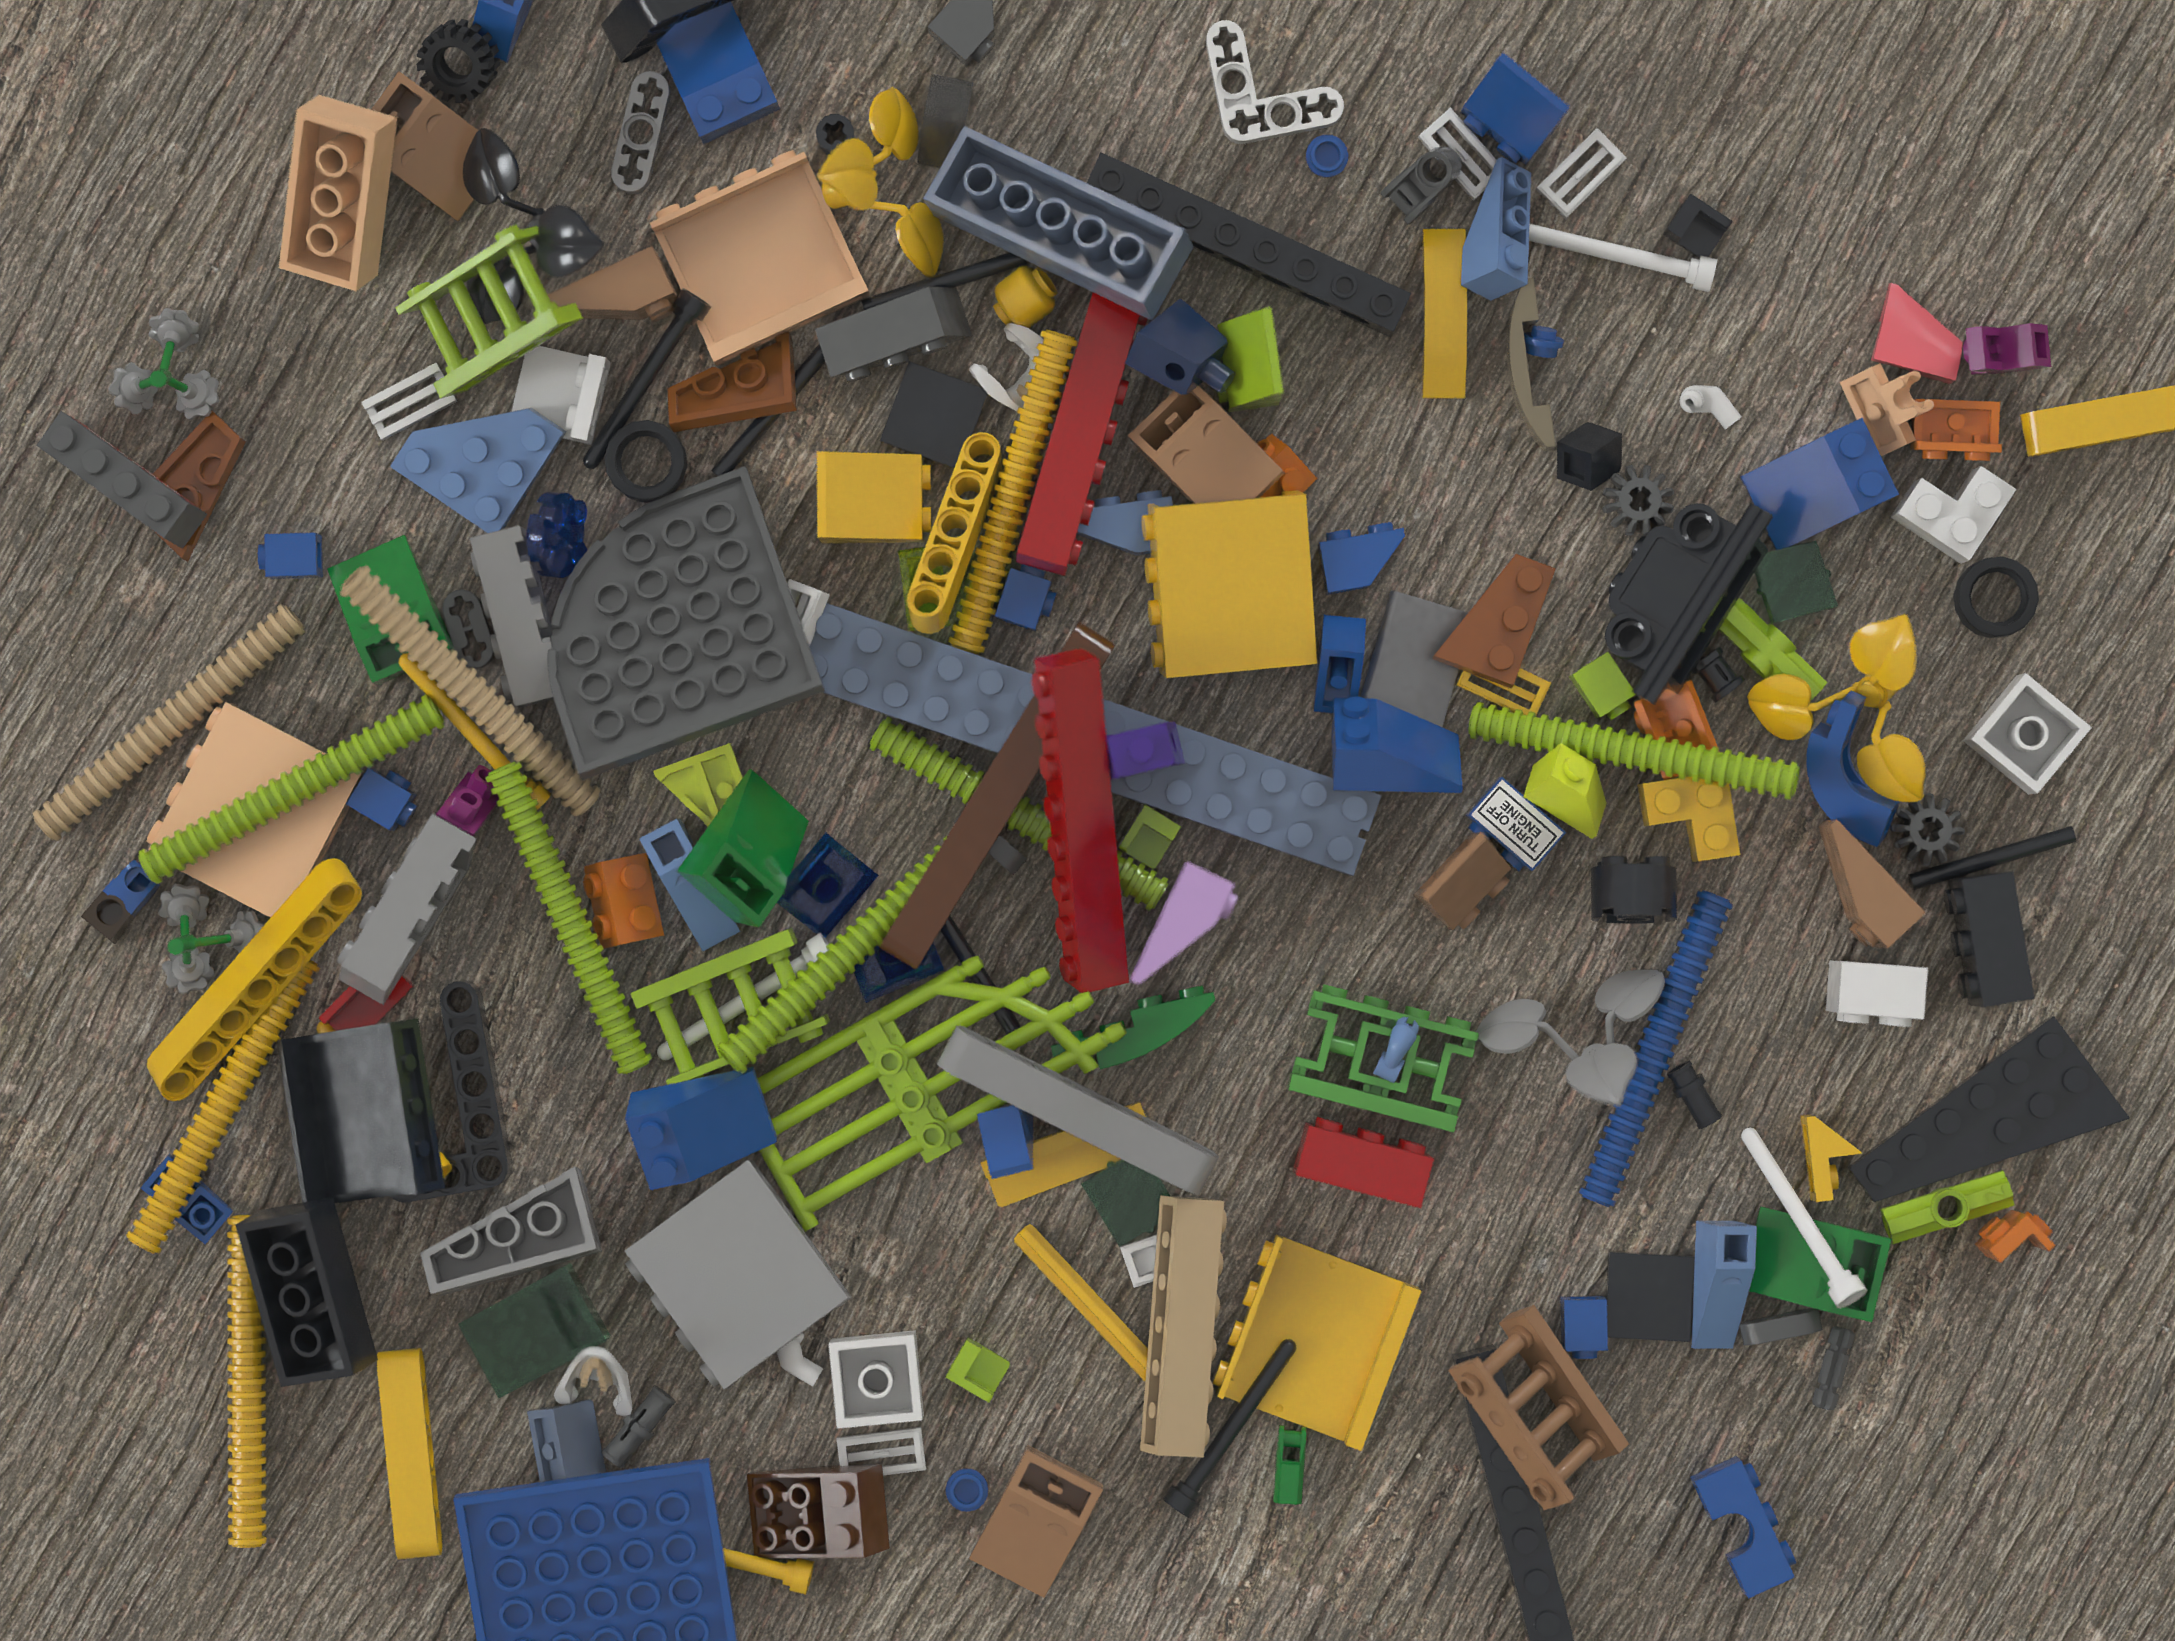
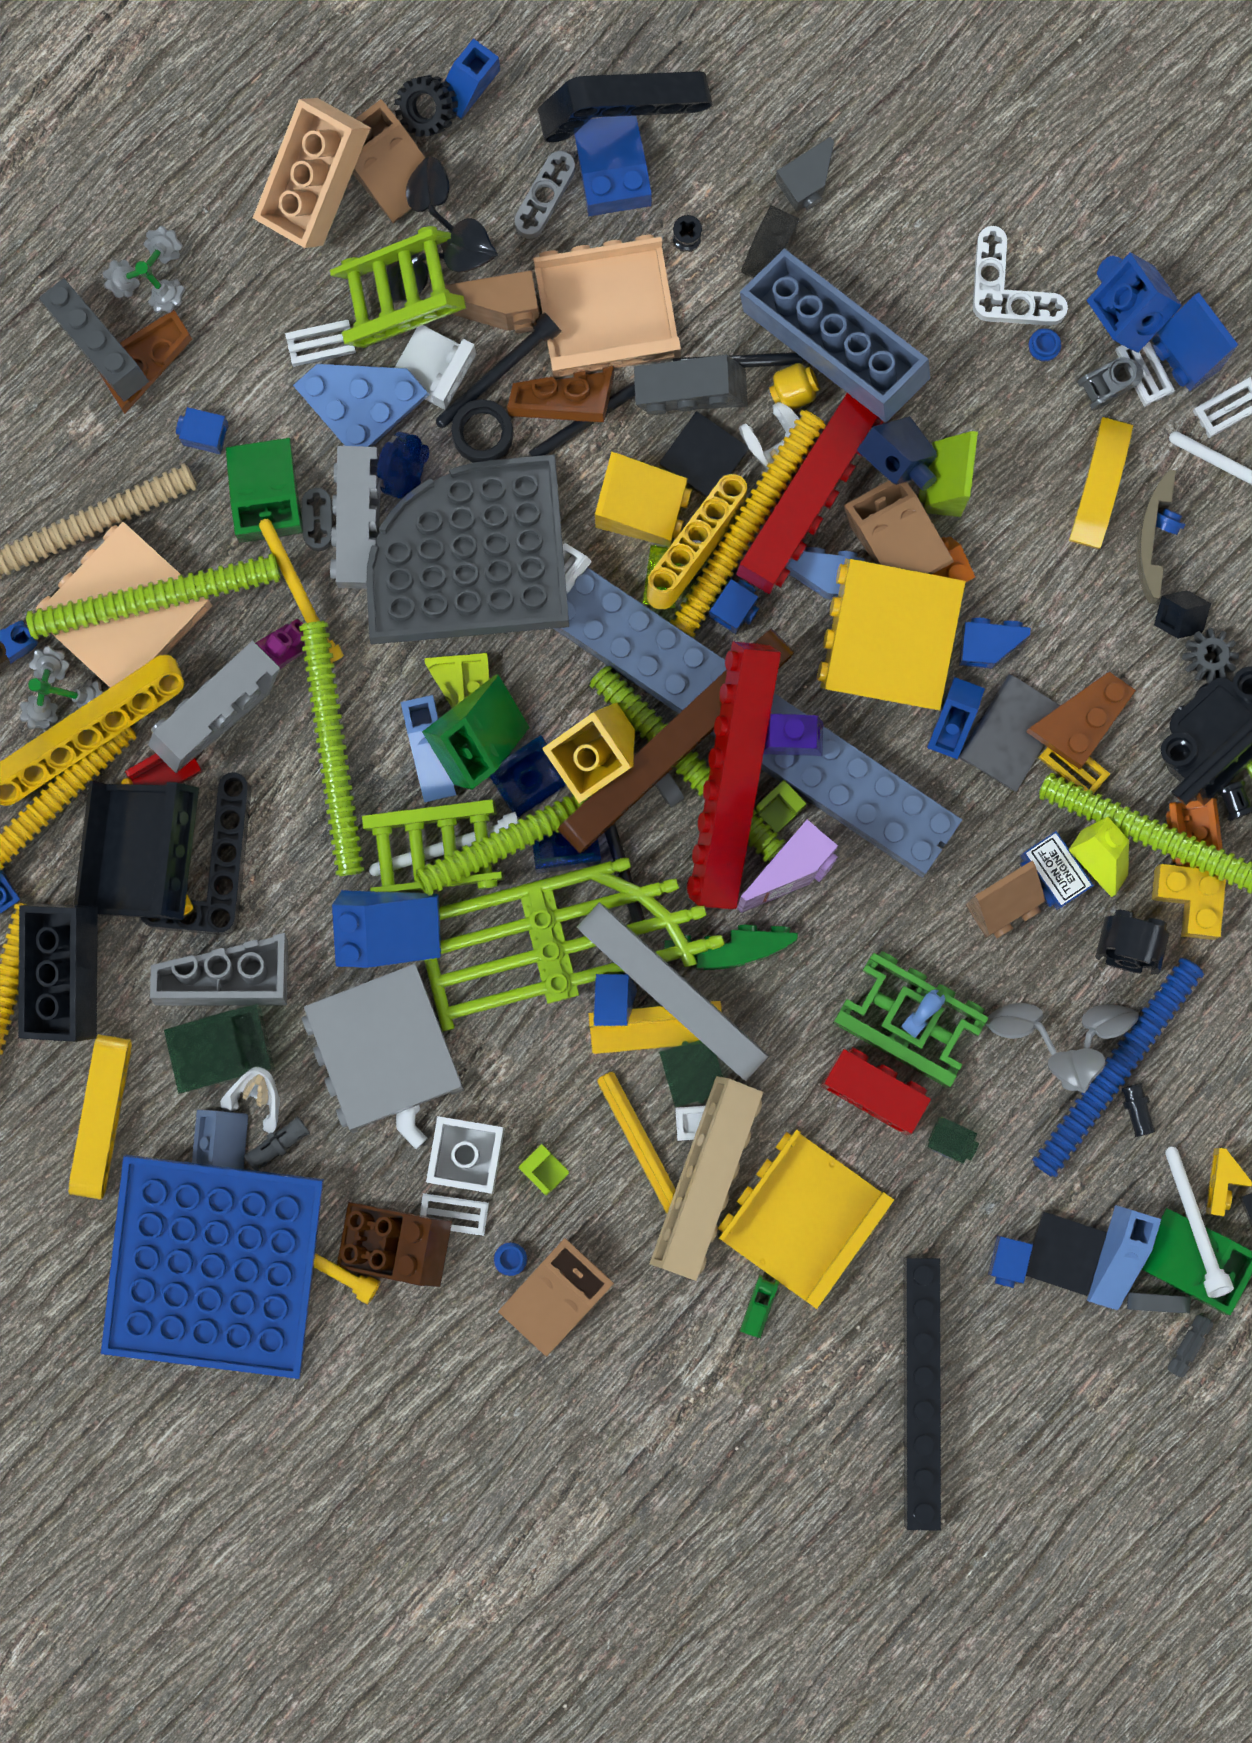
camera: 15 degrees right, 5 degrees down
(384, 799) = (219, 625): blue brick -> none
(469, 690) = (306, 560): tan piece -> none
(623, 900) = (375, 748): orange bracket -> none
(851, 180) = (694, 255): yellow plant -> none
(899, 837) = (593, 751): none -> yellow slope
(1185, 1494) = (675, 1307): black piece -> none
(1257, 248) = (983, 401): black brick -> none
(1391, 750) = (978, 788): blue slope -> none
(1422, 75) = (1132, 300): none -> blue brick
(1474, 1196) = (952, 1141): none -> clear green brick
(1499, 235) = (1156, 437): medium blue slope -> none
(1566, 1388) = (984, 1304): medium nougat fence -> none
(1603, 687) = (1149, 786): lime brick -> none
(1762, 1559) = (1099, 1476): blue arch -> none

